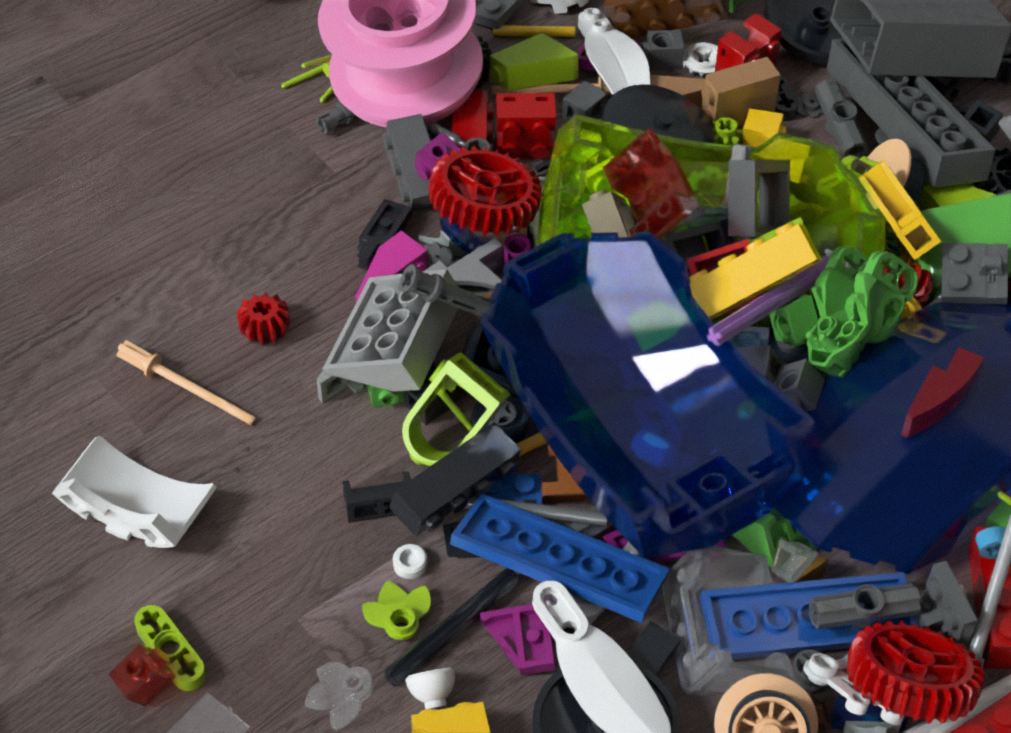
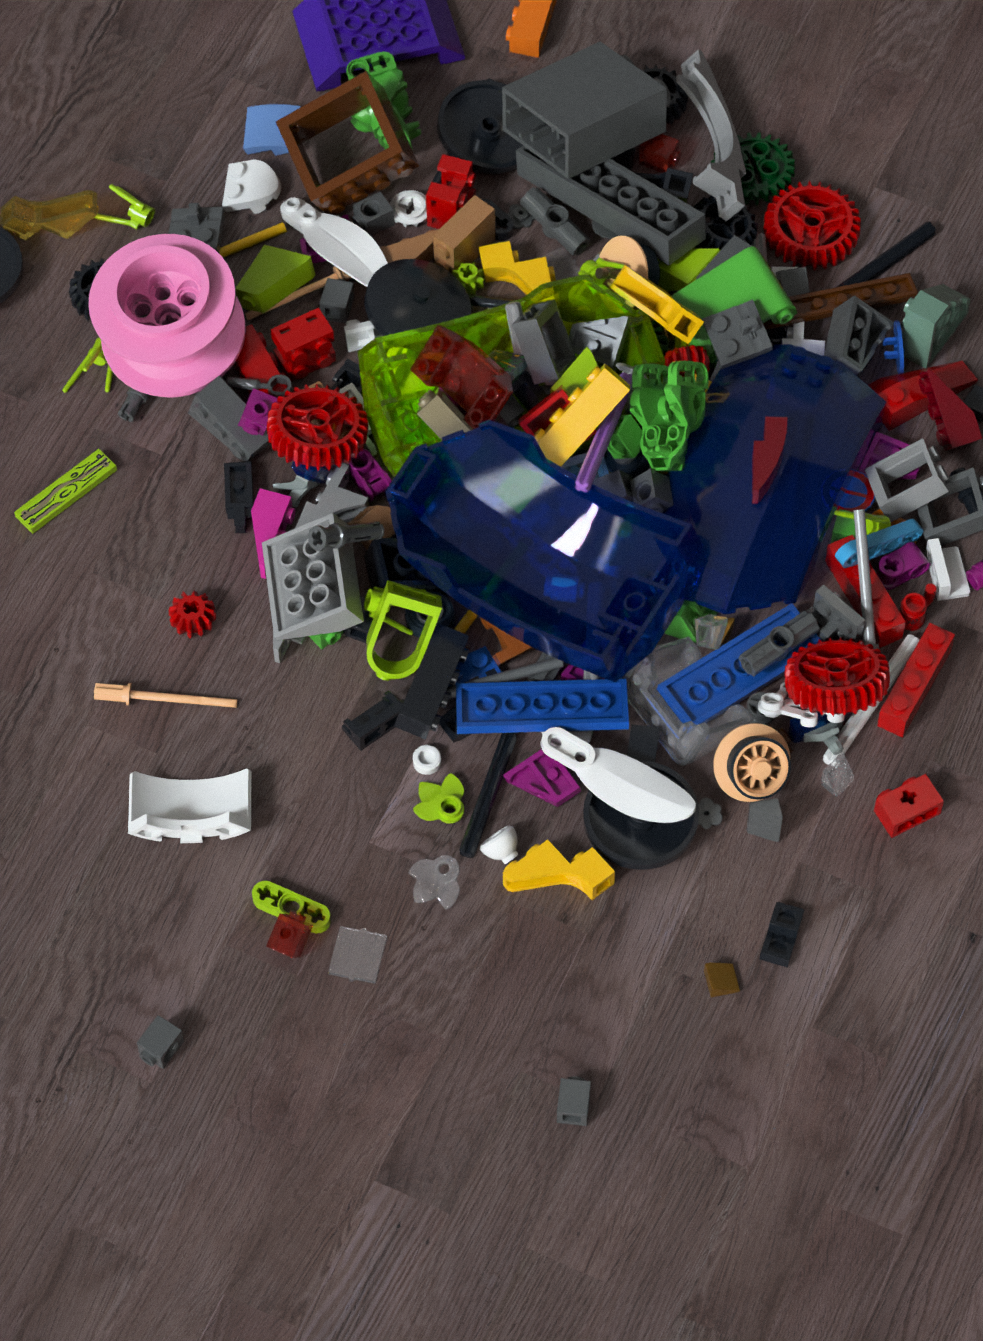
camera: 25 degrees left, 10 degrees up
(223, 166) = (65, 491): none -> lime tile
(439, 252) = (302, 495): dark grey plant -> none
(826, 220) = (602, 337): none -> dark grey wing
(984, 90) = (660, 153): none -> clear red brick

